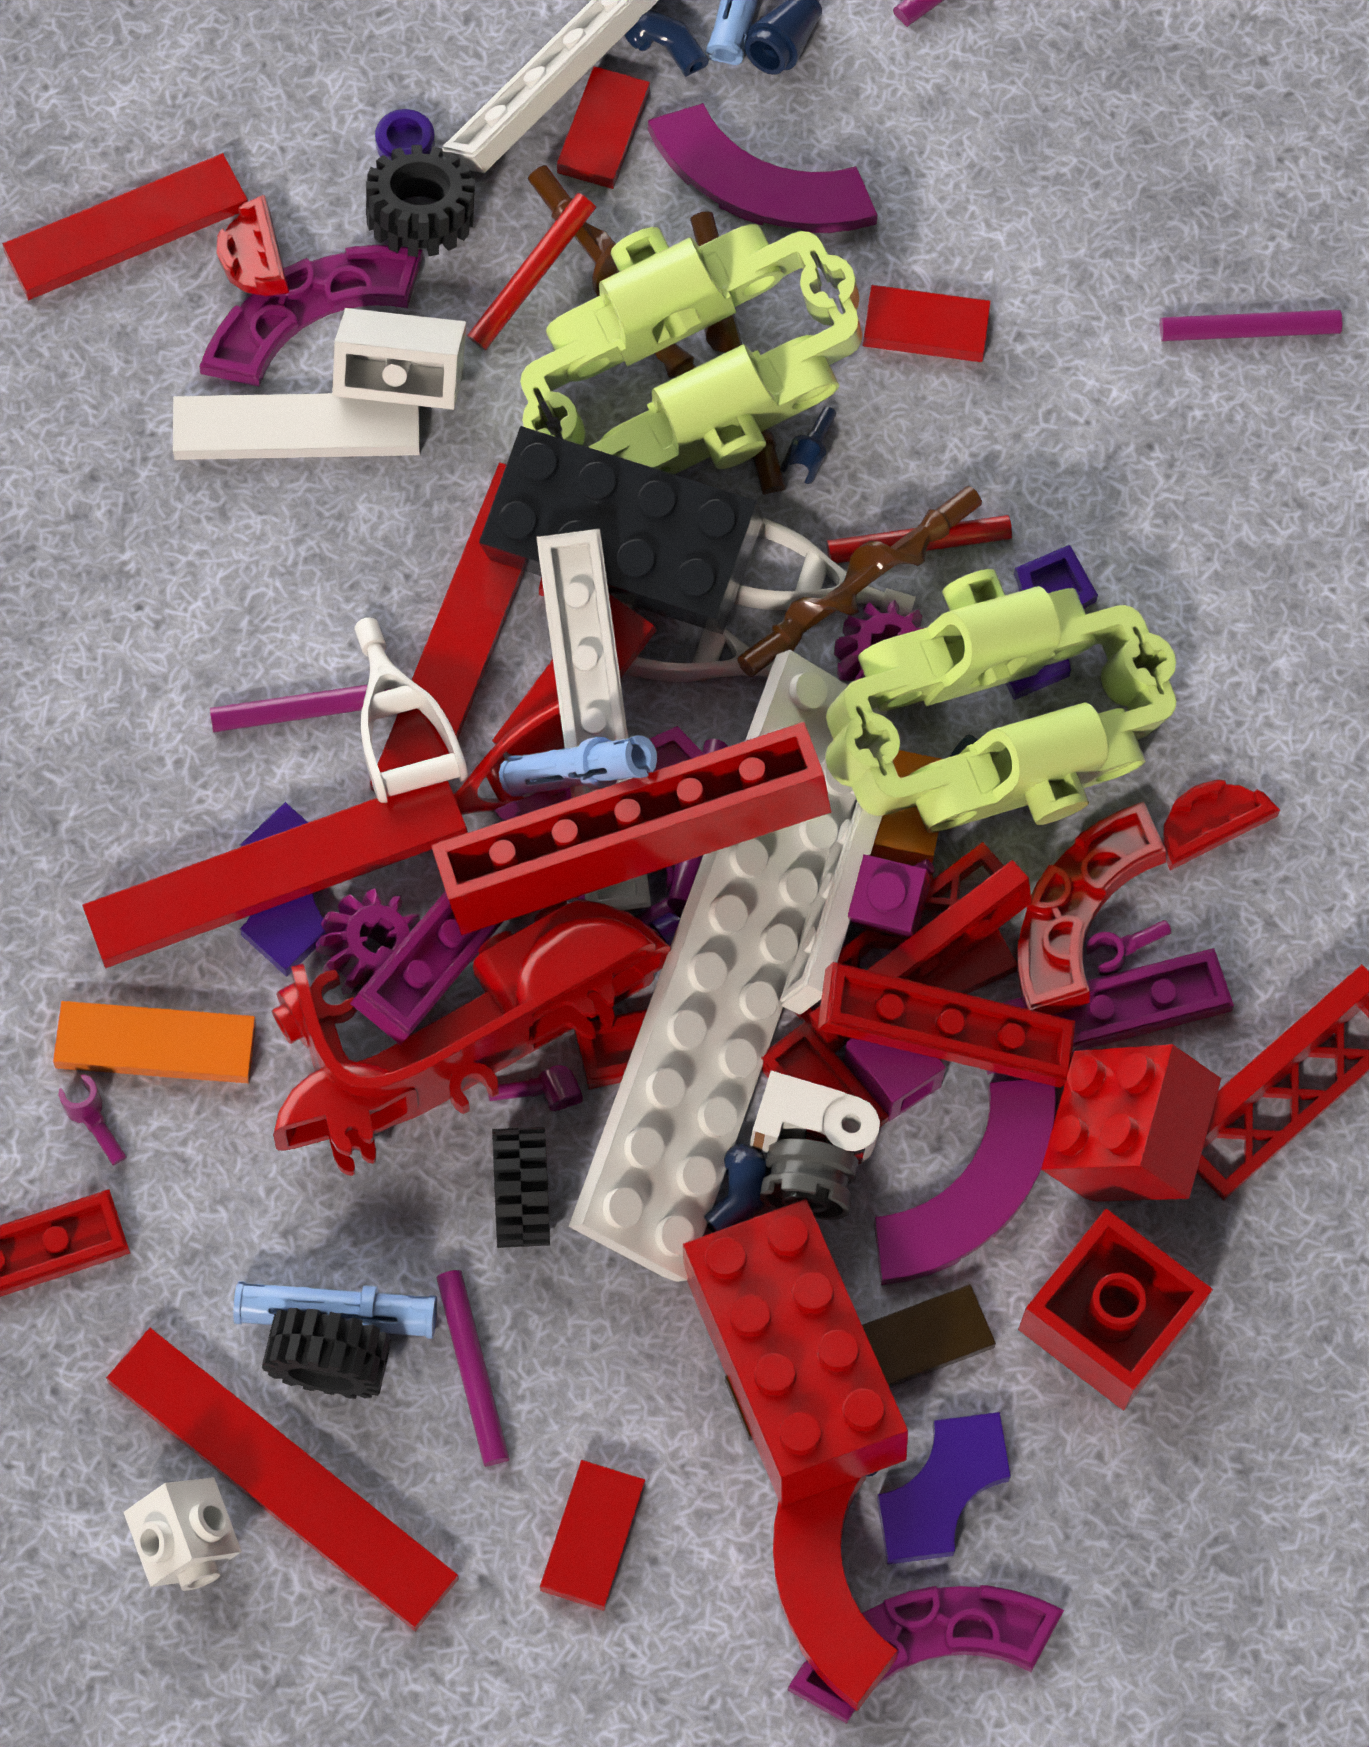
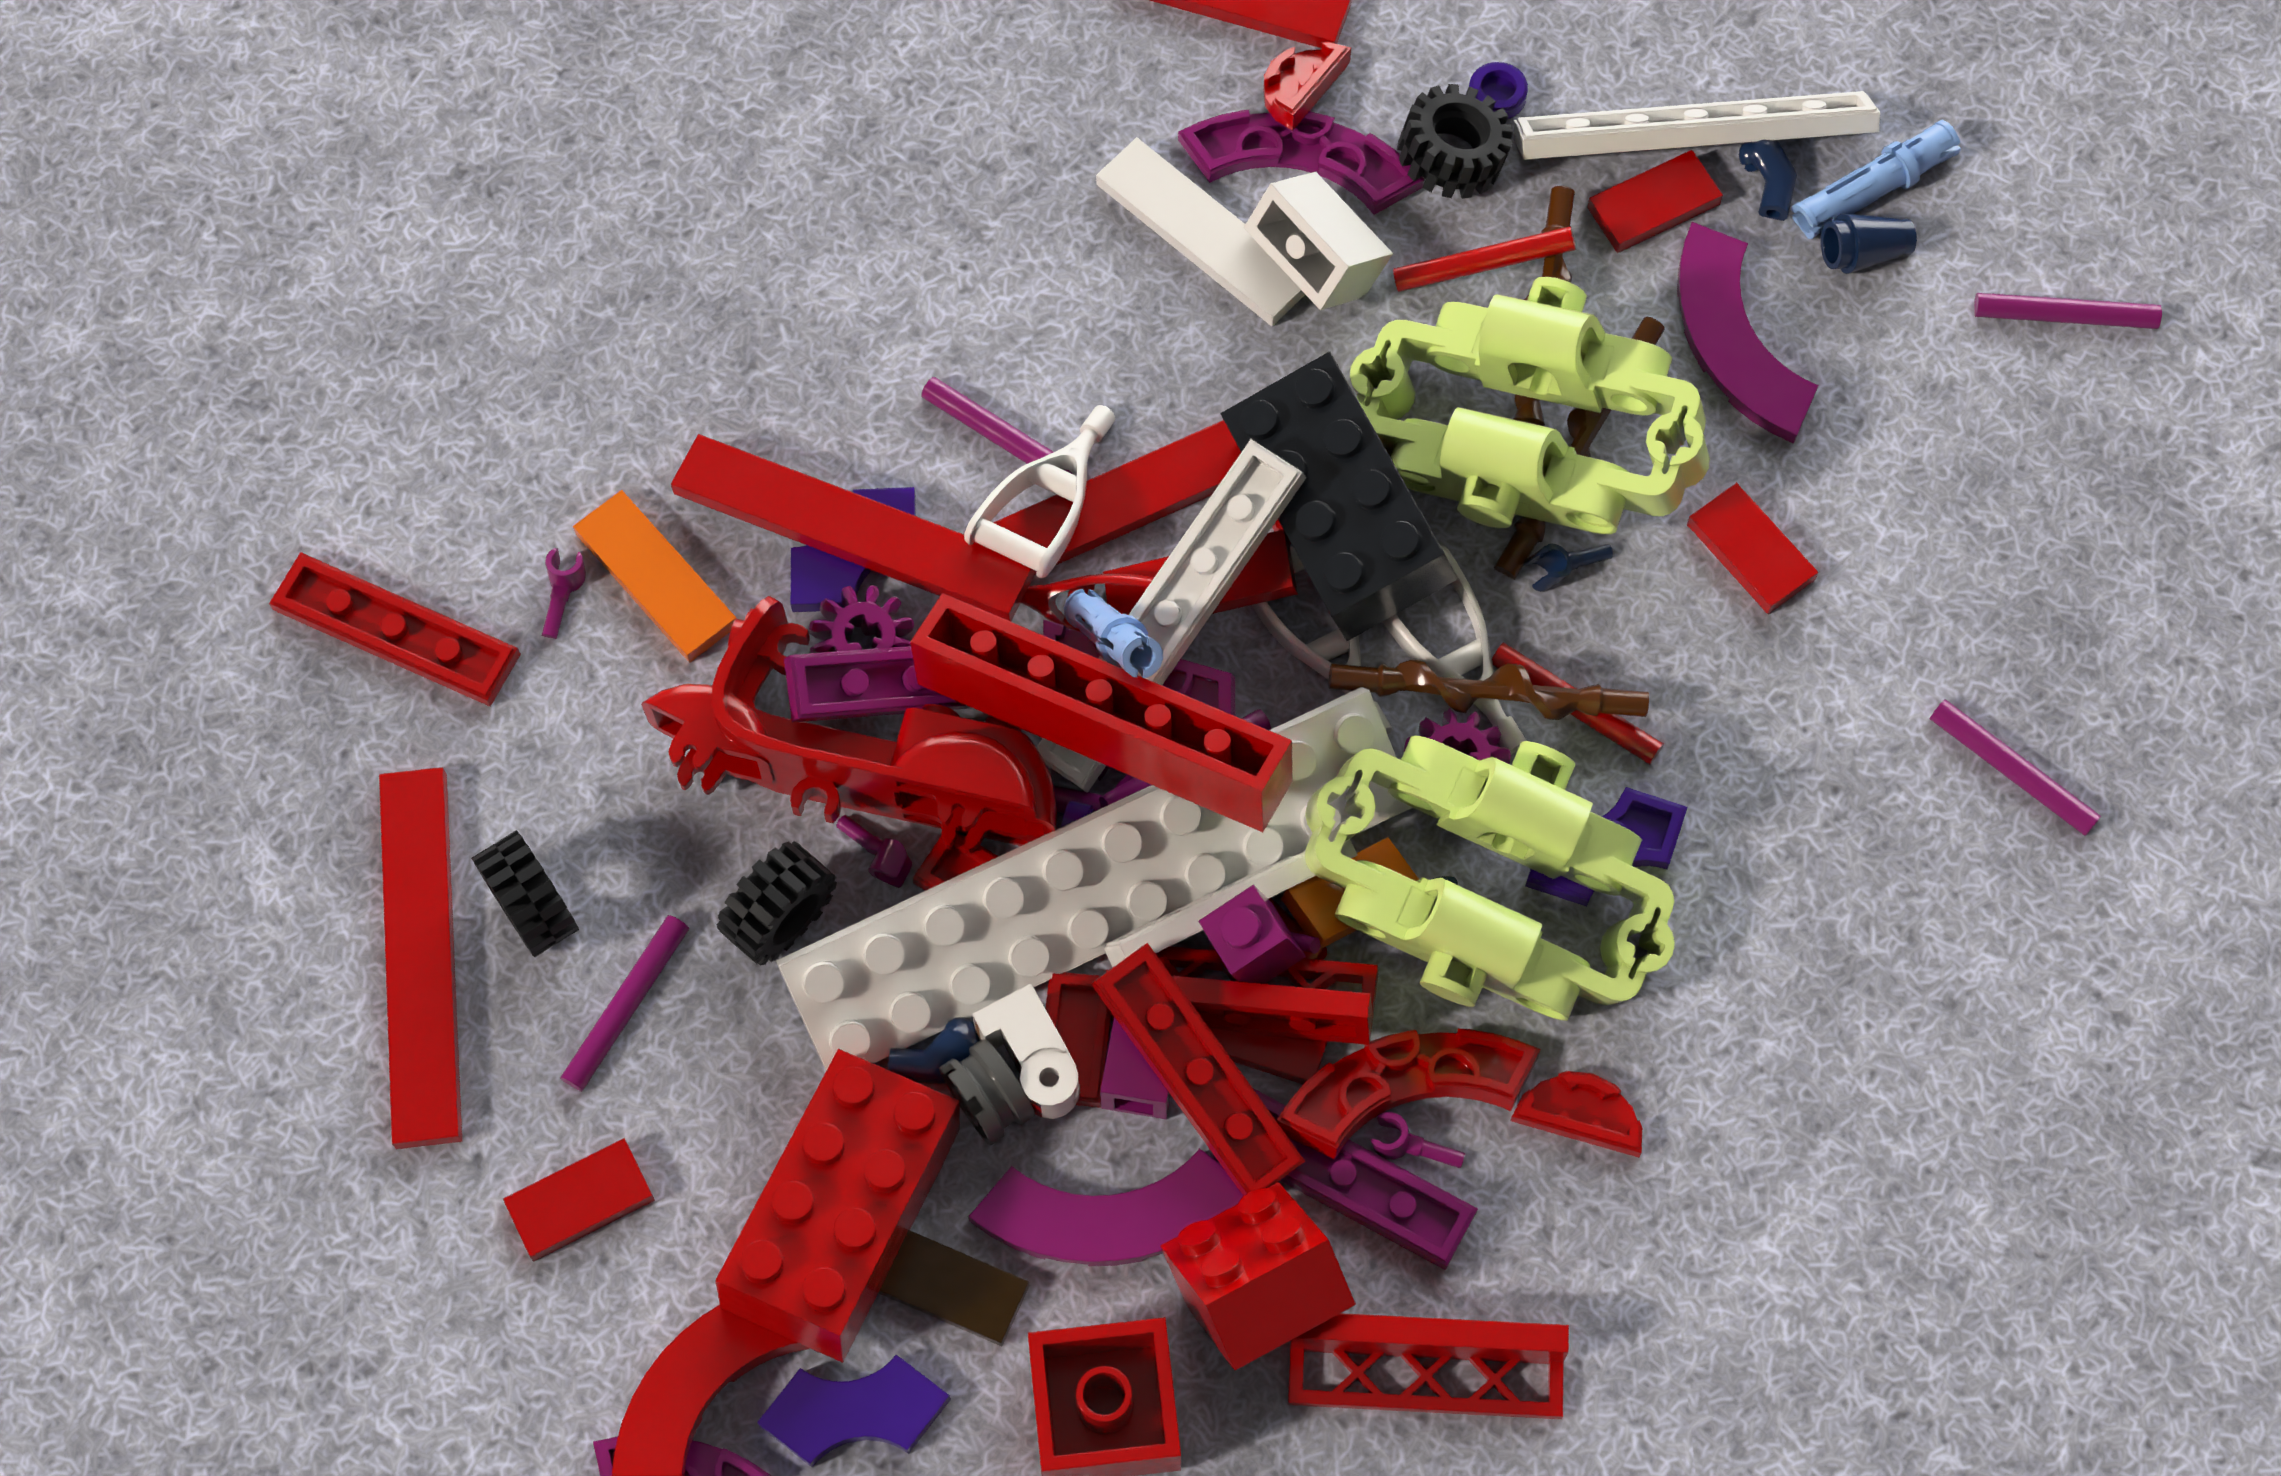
camera: 50 degrees right, 0 degrees up
(183, 1533) = (307, 927): white brick -> none
(388, 1312) = (589, 890): light blue pin -> none

